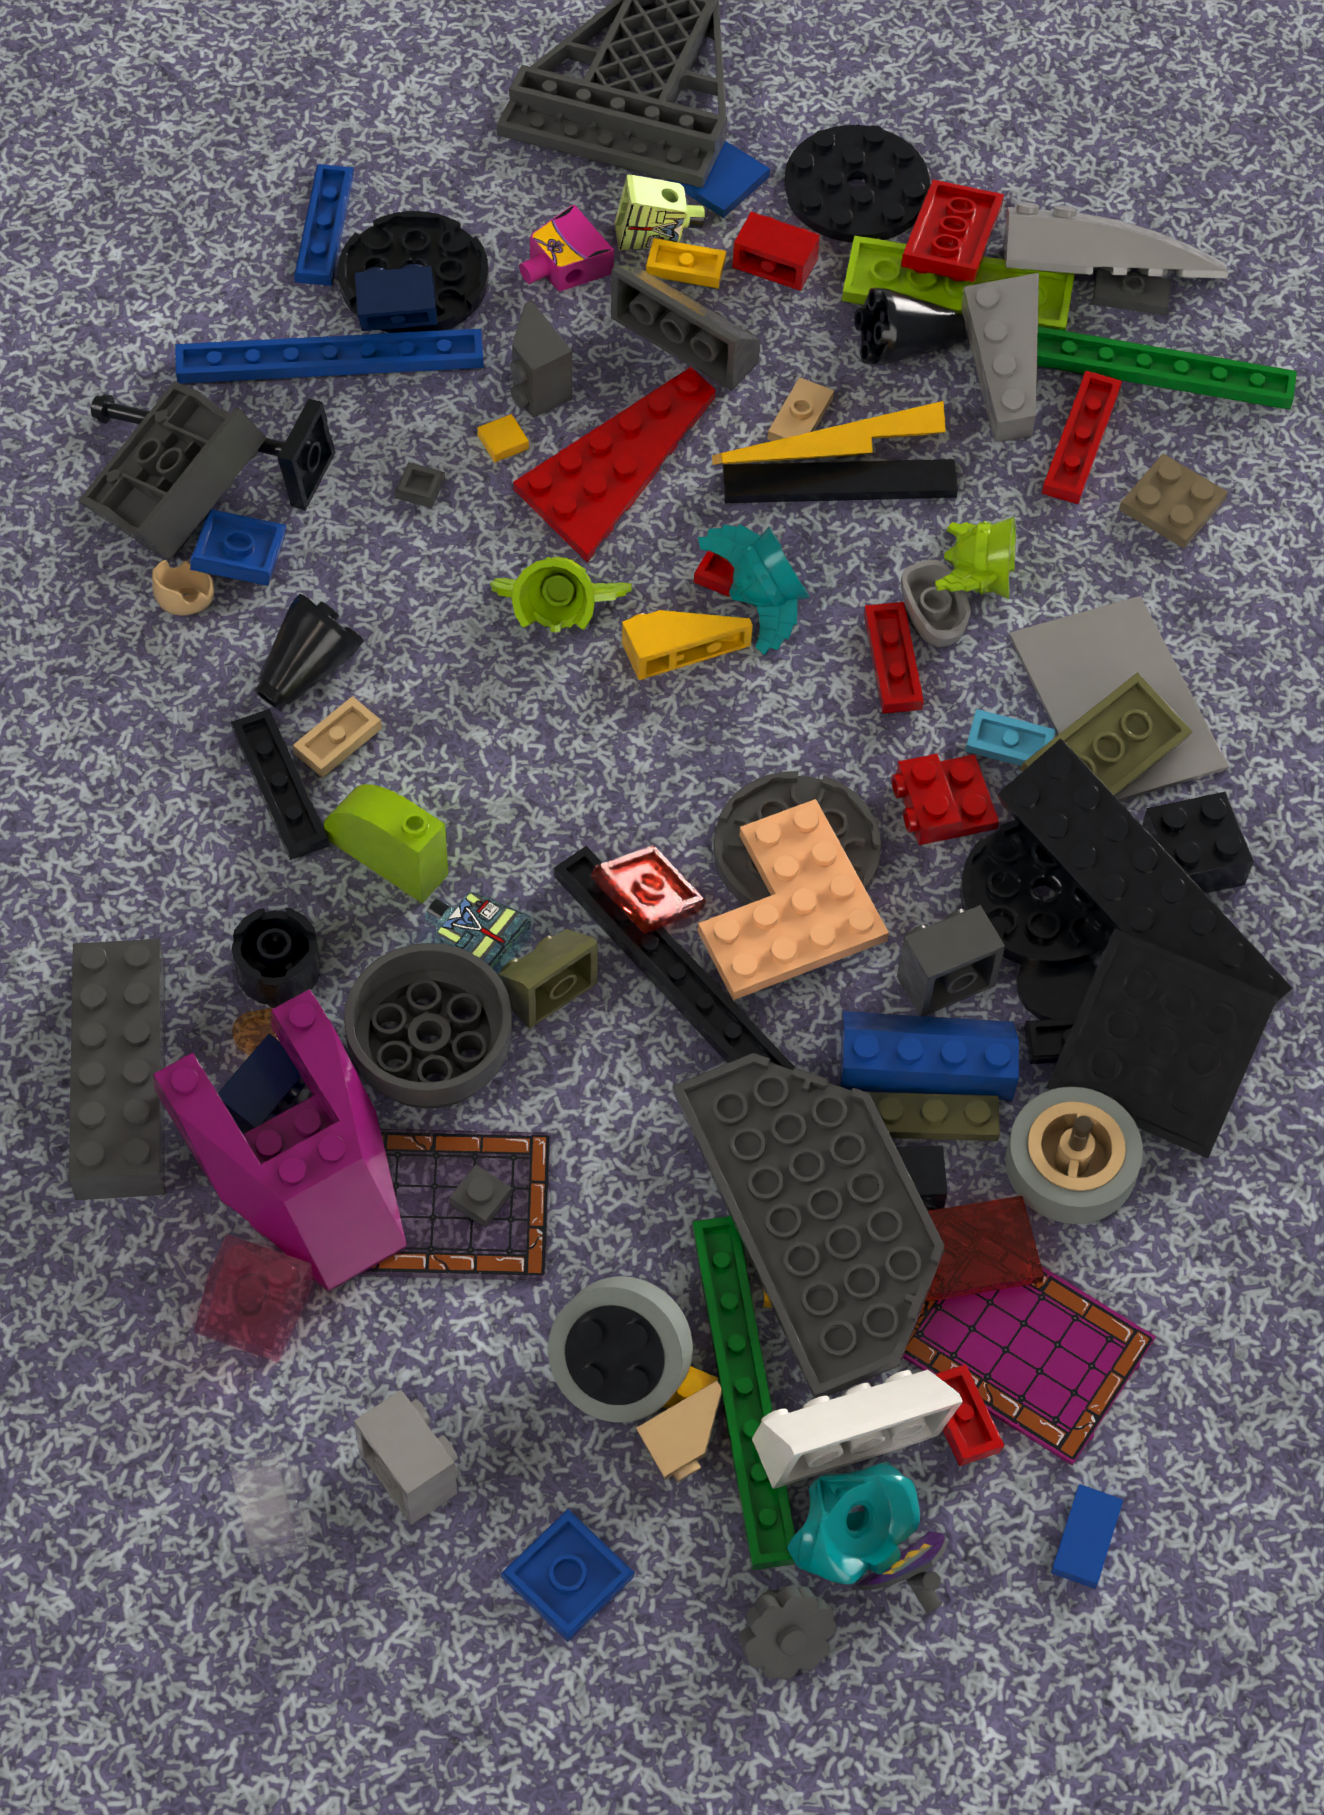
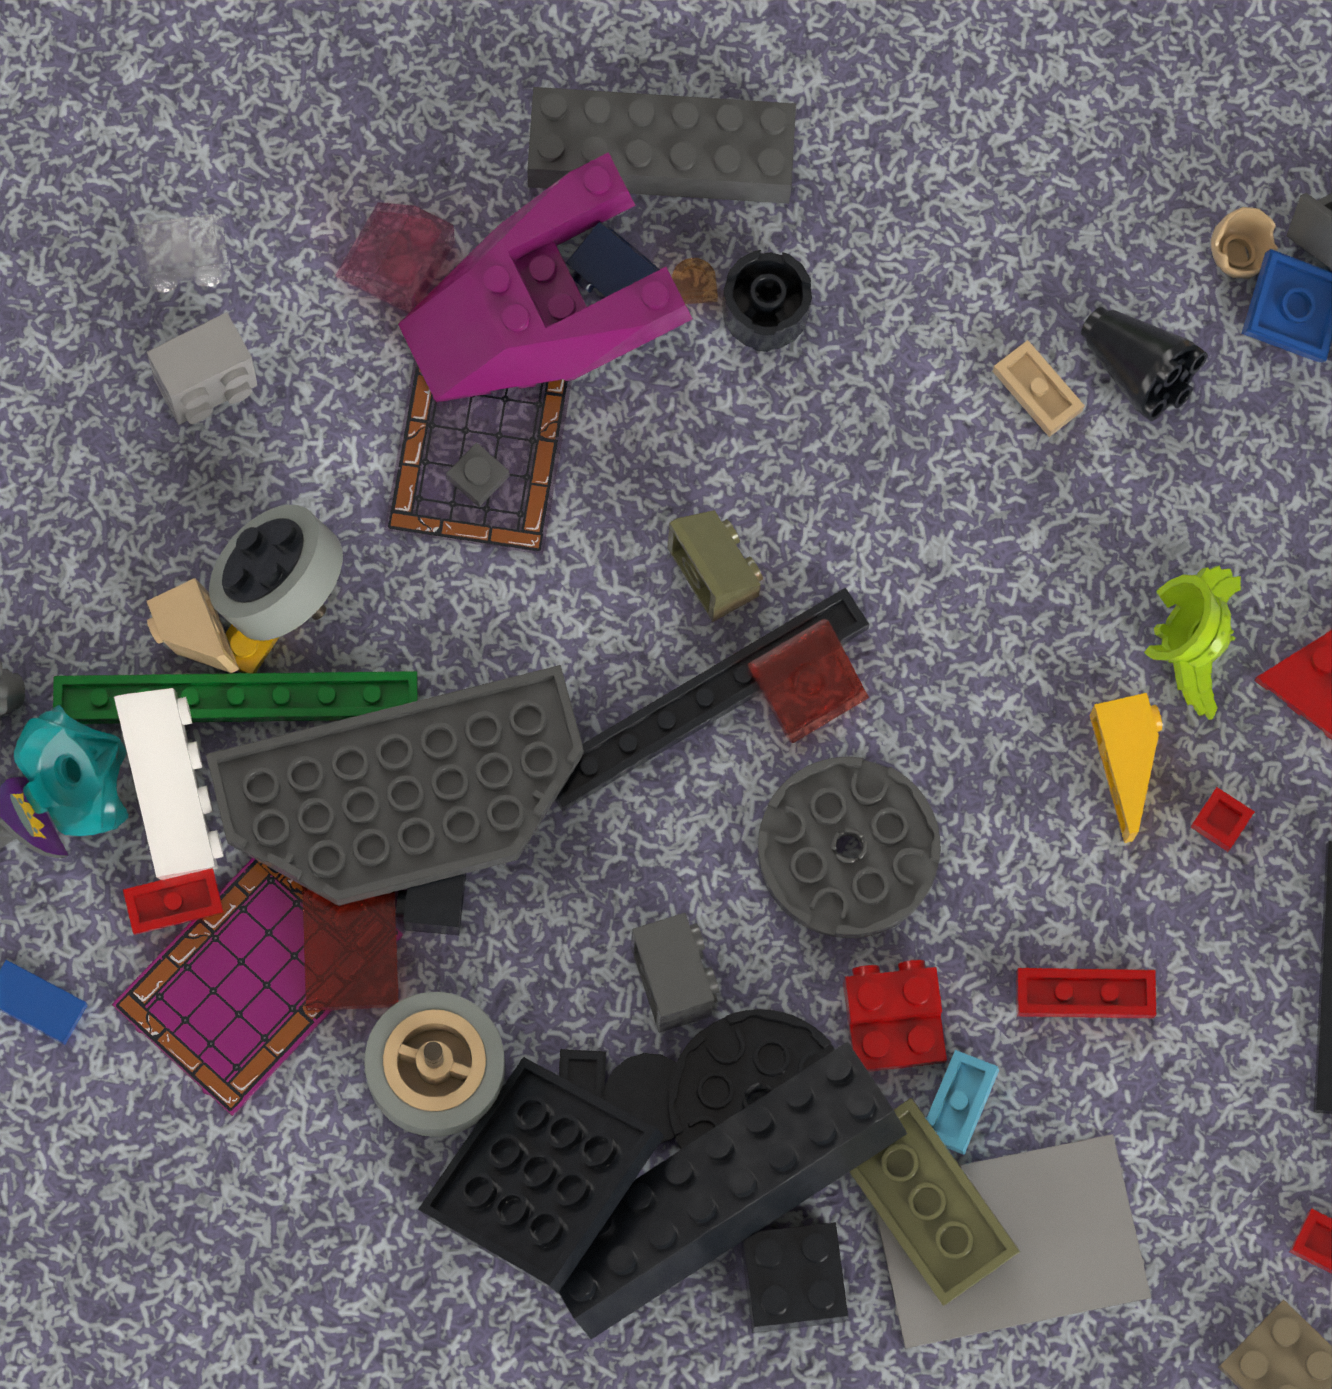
camera: 95 degrees right, 15 degrees up
(280, 784) = (985, 325): black plate -> none
(391, 838) = (888, 419): lime brick -> none
(456, 984) = (658, 379): dark grey wheel -> none
(481, 927) = (771, 502): torso -> none
(567, 1575) = (79, 512): blue tile -> none
(760, 579) = (1196, 856): teal helmet -> none
(813, 911) = (764, 850): light nougat plate -> none
(928, 1055) = (582, 941): blue slope -> none
(935, 614) = (1148, 1045): light grey piece -> none
(939, 1116) = (512, 924): olive plate -> none
(981, 557) = (1202, 1104): lime helmet -> none

